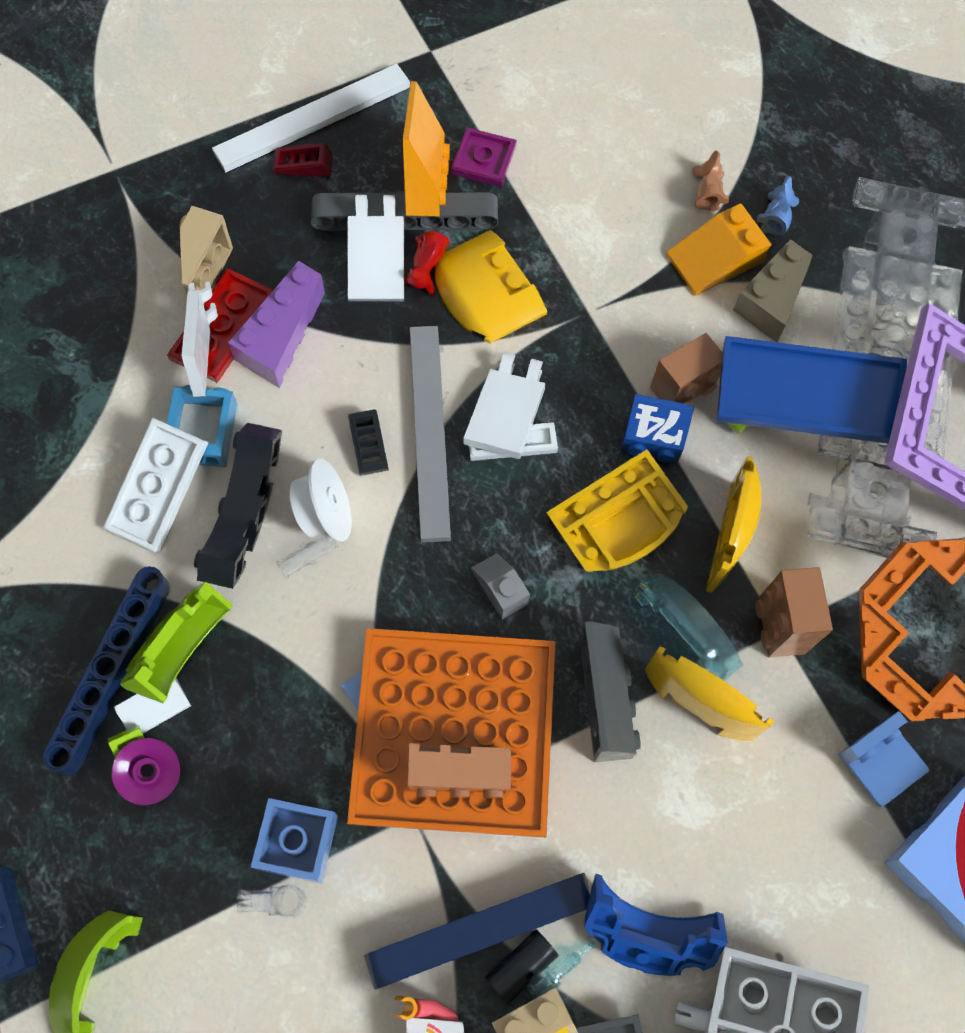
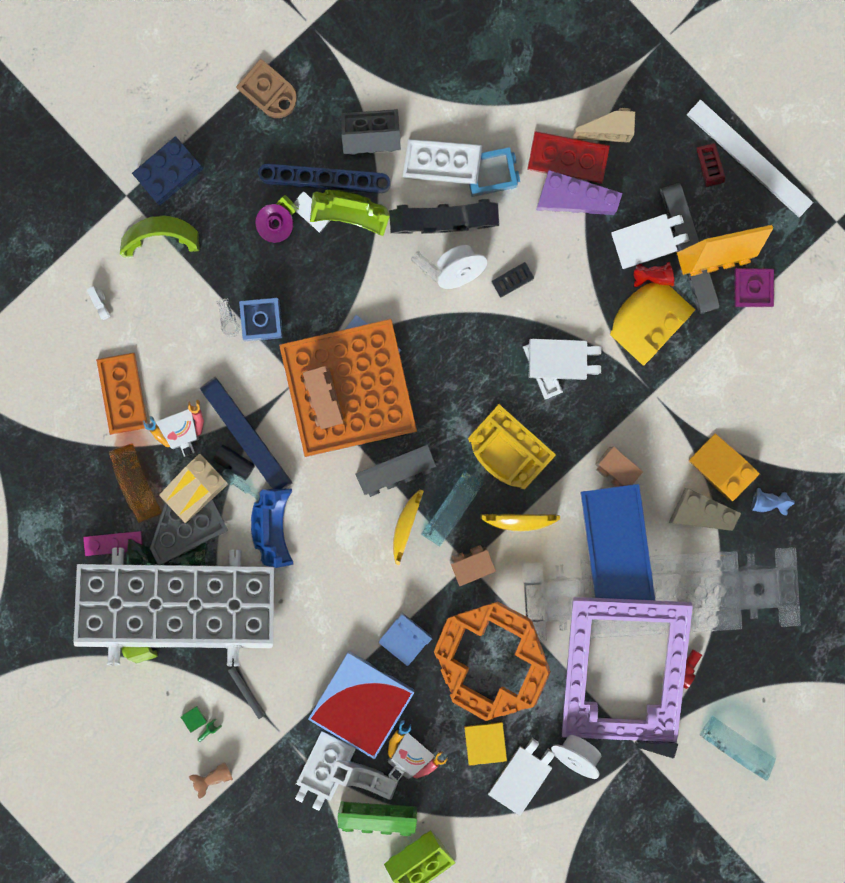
camera: 75 degrees right, 20 degrees up
(68, 577) = (370, 131): none -> dark grey slope
(197, 337) = (544, 150): white tile -> none
(430, 435) = (534, 315): light grey tile -> none
(501, 585) = (445, 388): light grey slope -> none
(658, 427) = (572, 457): blue slope -> none
(710, 187) = (772, 450): nougat animal -> none

